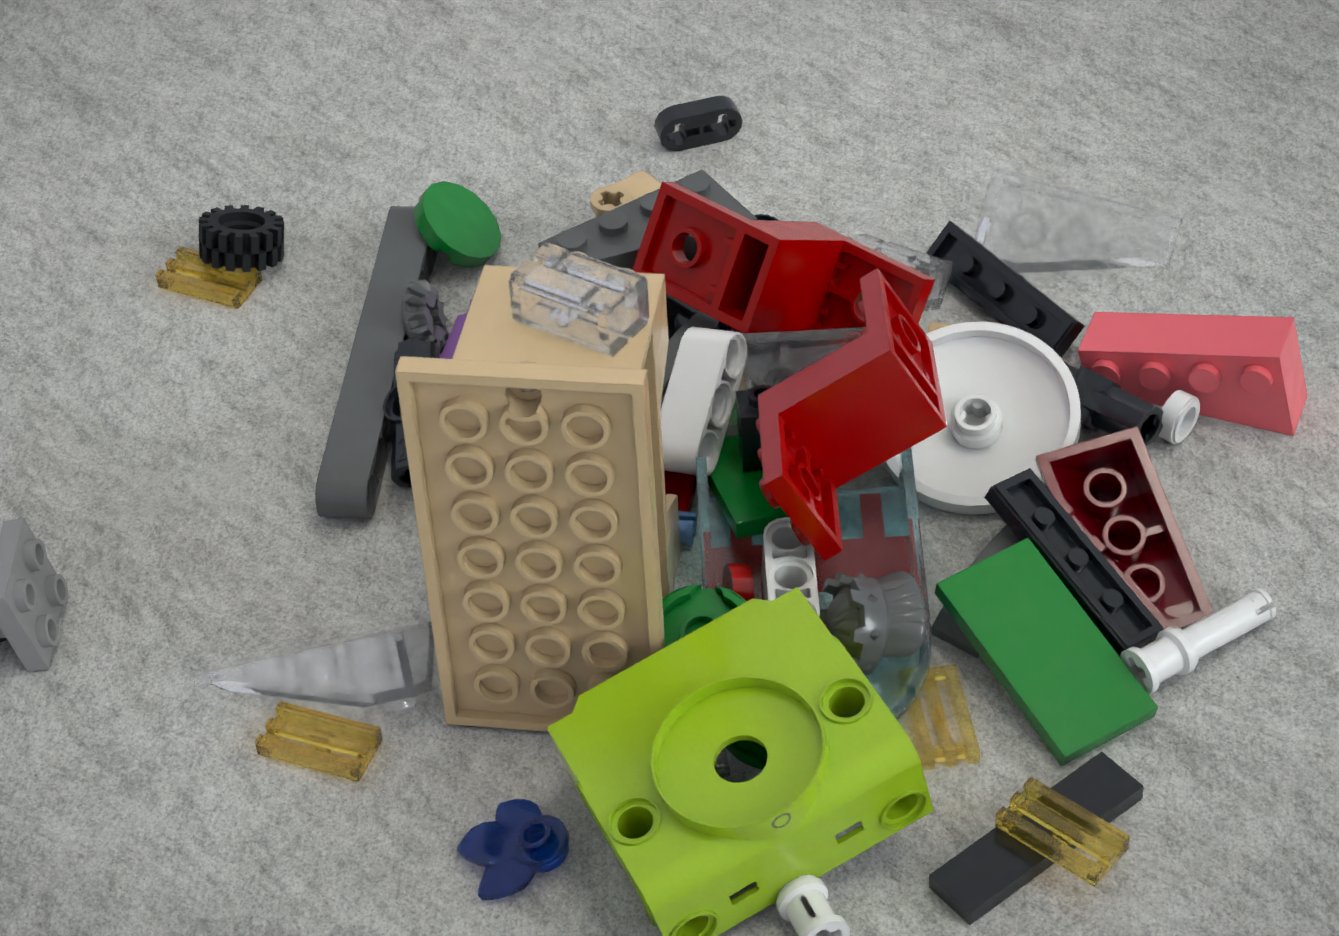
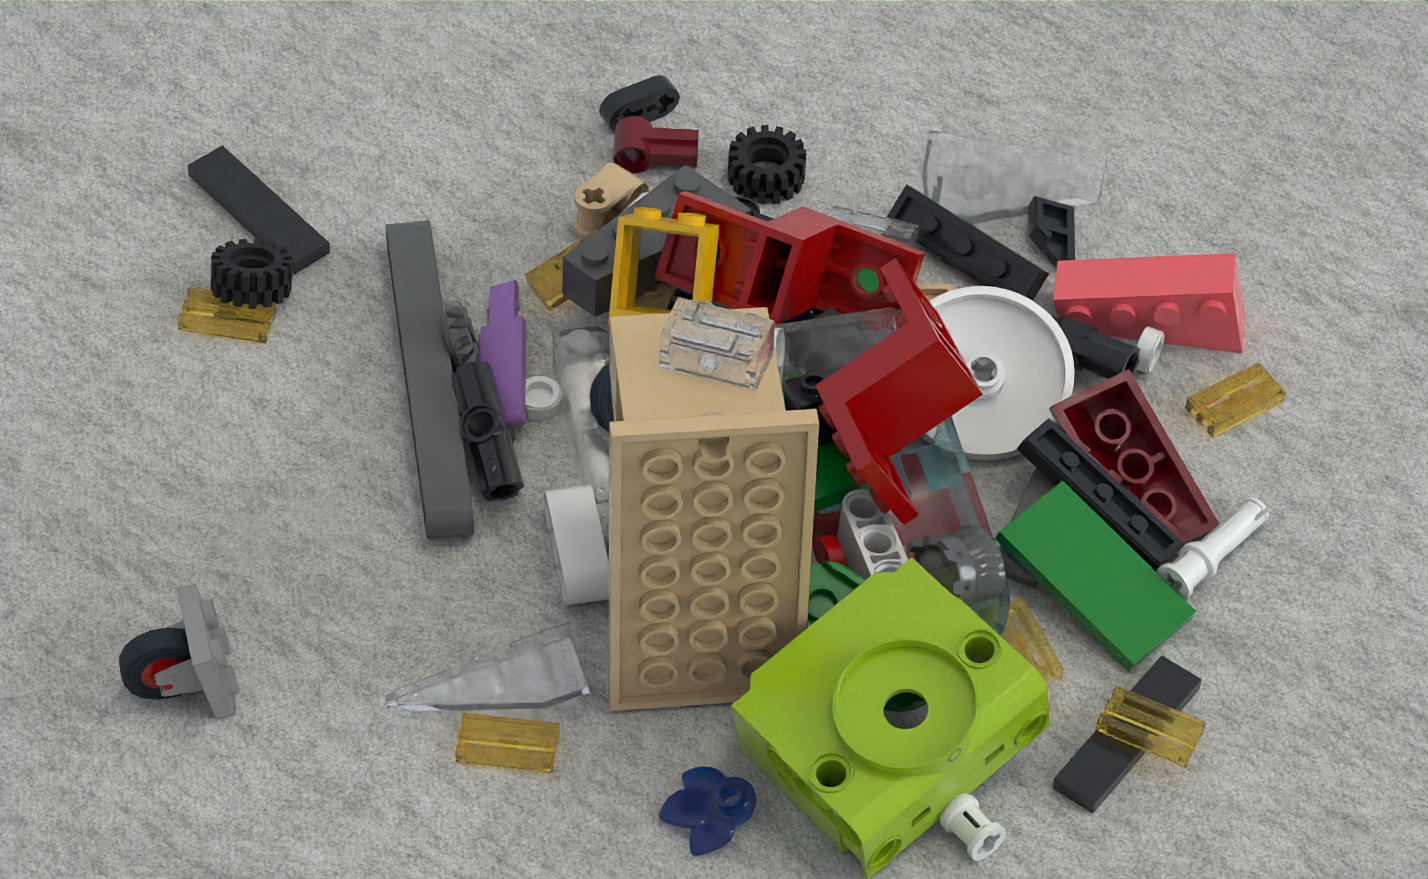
camera: 20 degrees left, 5 degrees up
(282, 184) = (257, 207): none -> black tile
(457, 223) = (455, 236): green tile -> none
(601, 230) = (628, 250): none -> yellow window
(685, 154) = (640, 145): none -> dark red piece
(812, 189) = (767, 181): none -> black tyre
(1105, 282) = (1052, 228): none -> black tile
(1274, 489) = (1241, 404): none -> clear yellow tile

